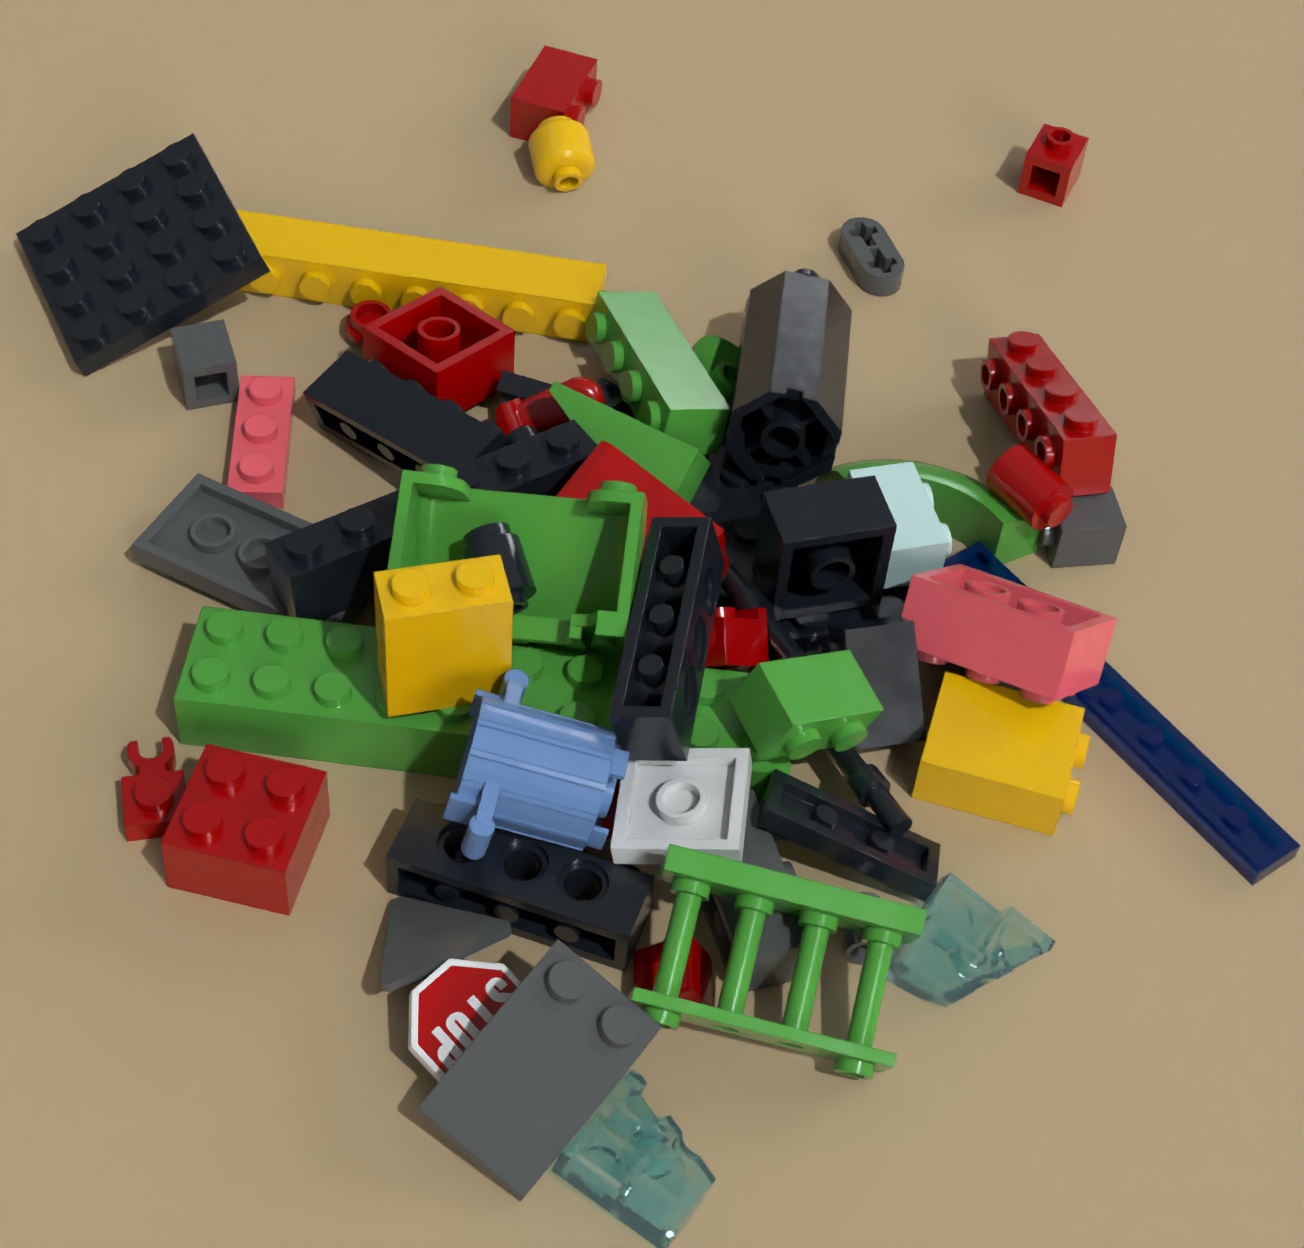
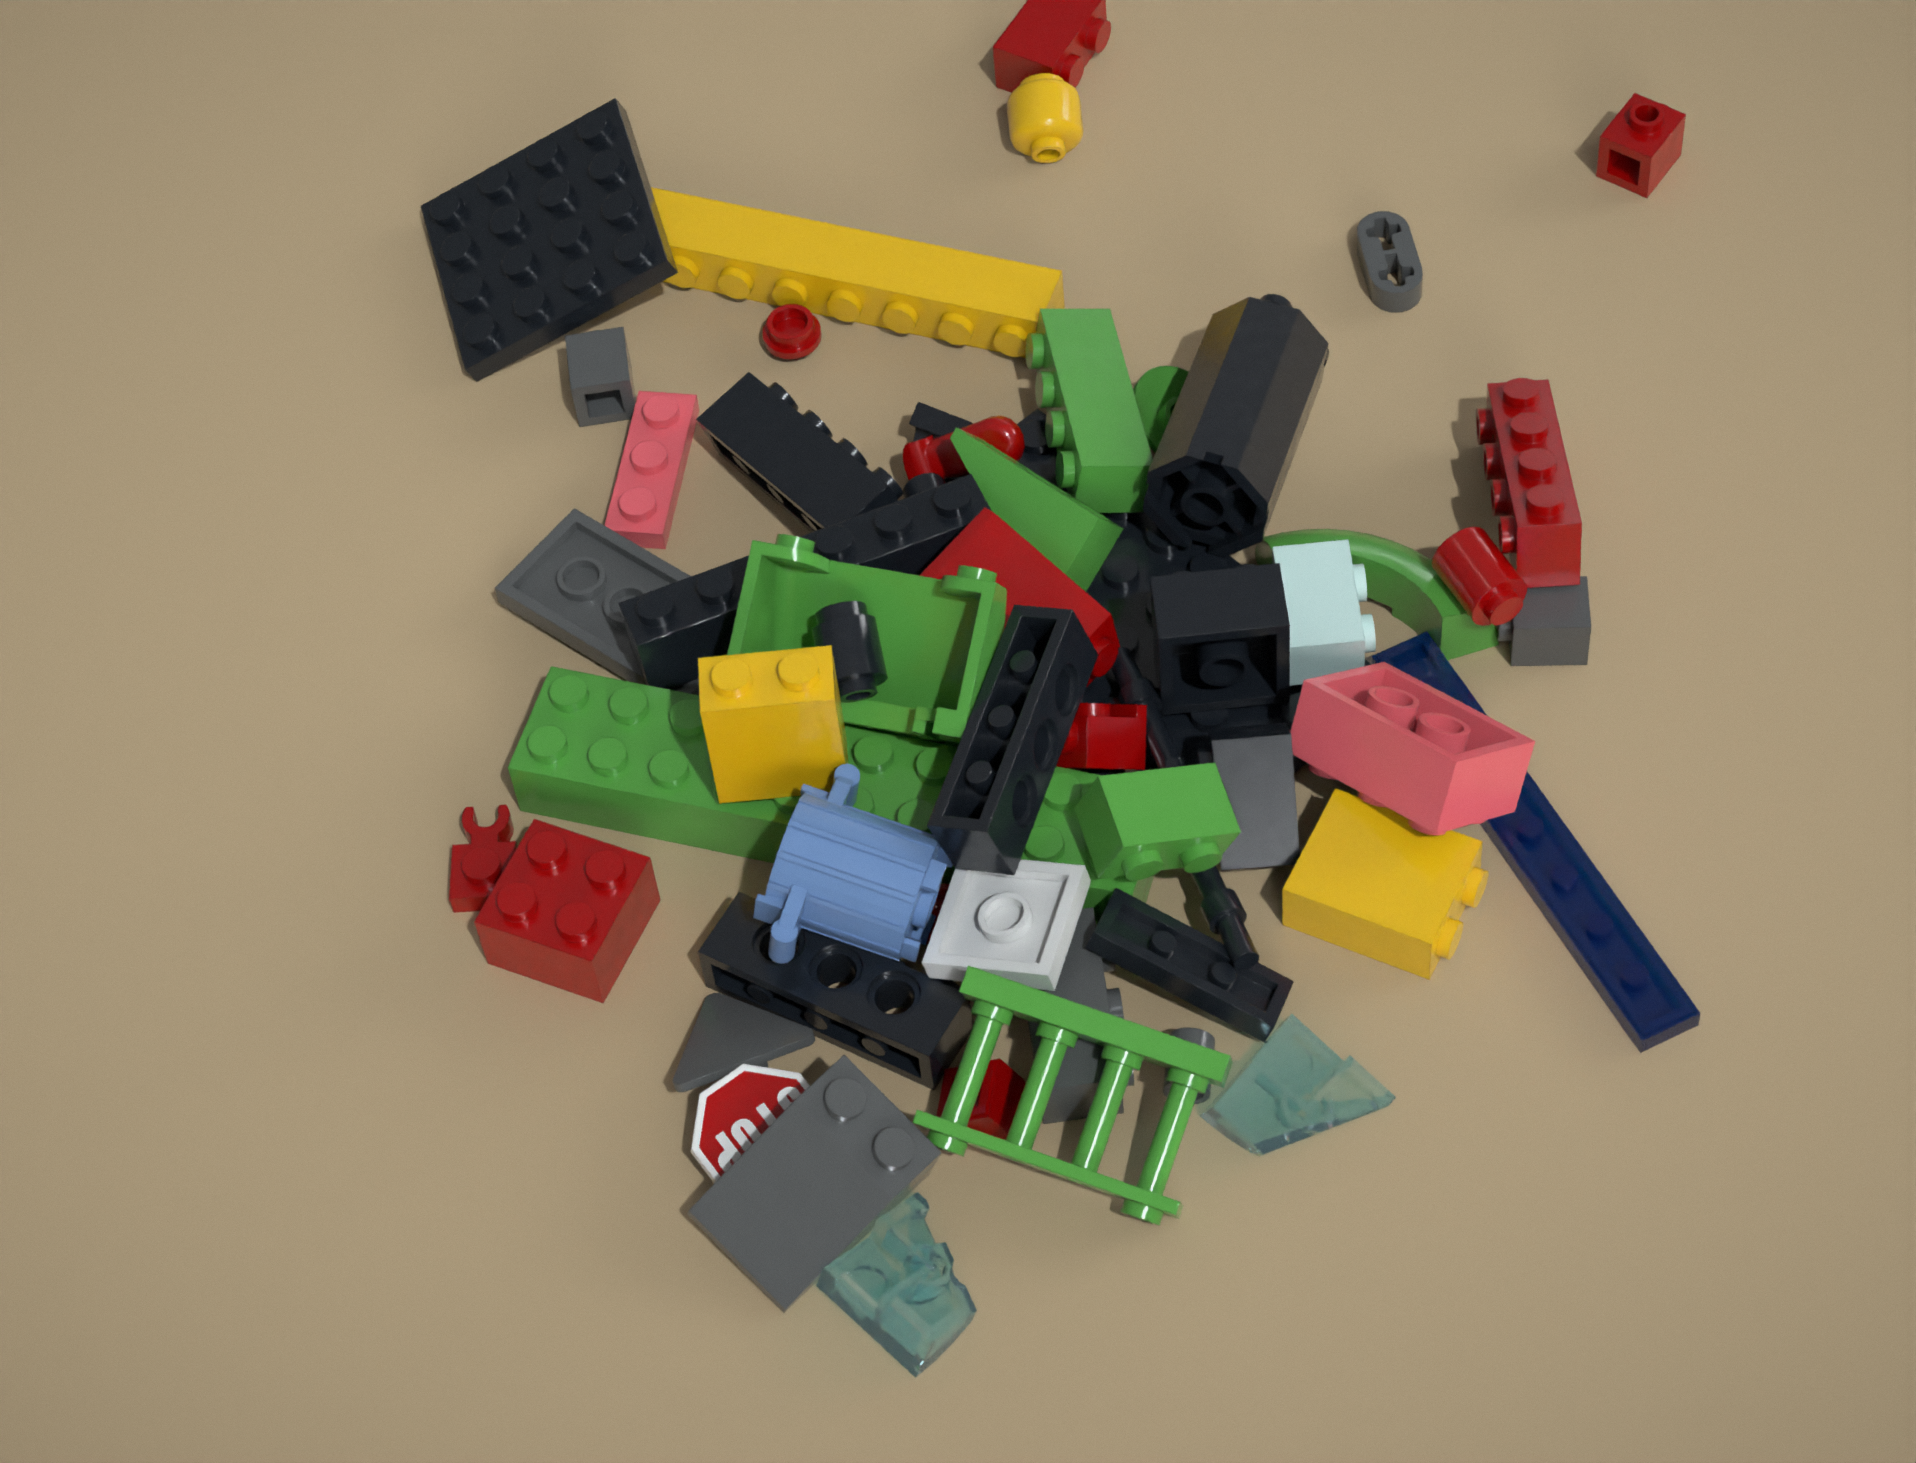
camera: 20 degrees right, 5 degrees up
(443, 347) = (856, 373): red brick -> none

